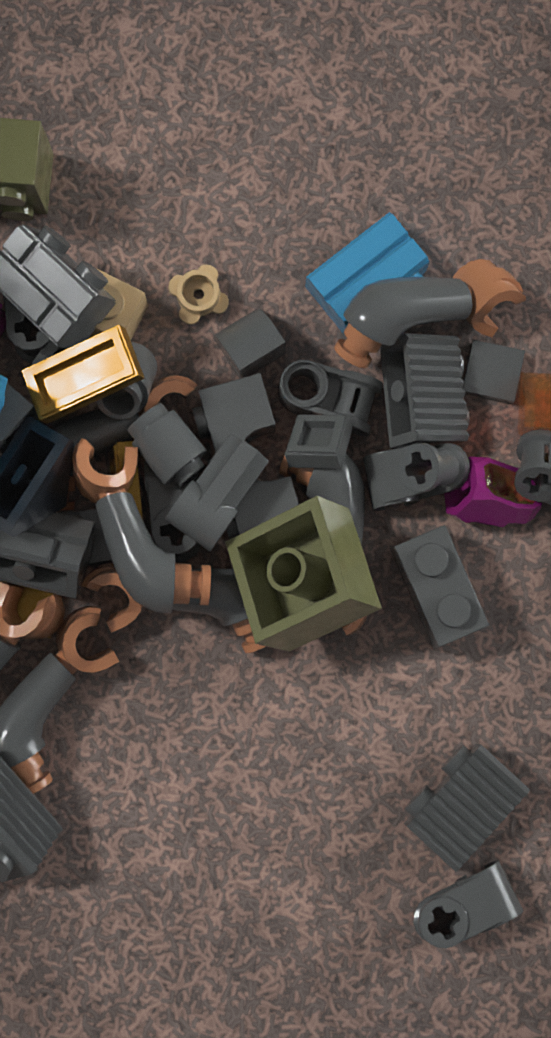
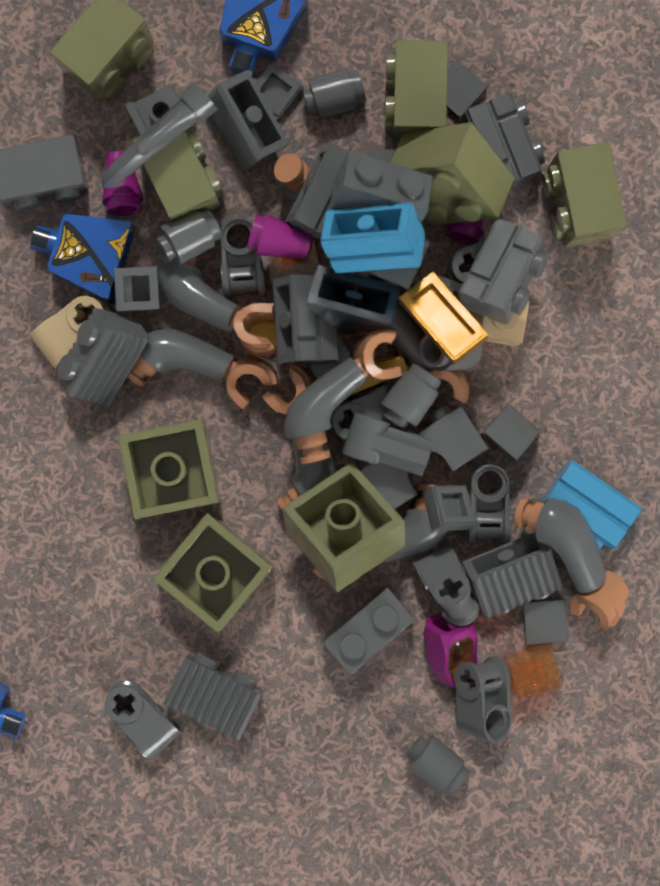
camera: 70 degrees right, 5 degrees up
(164, 775) = (169, 468): none -> olive brick
(201, 279) = (524, 381): tan plate -> none
(311, 758) = (213, 572): none -> olive brick

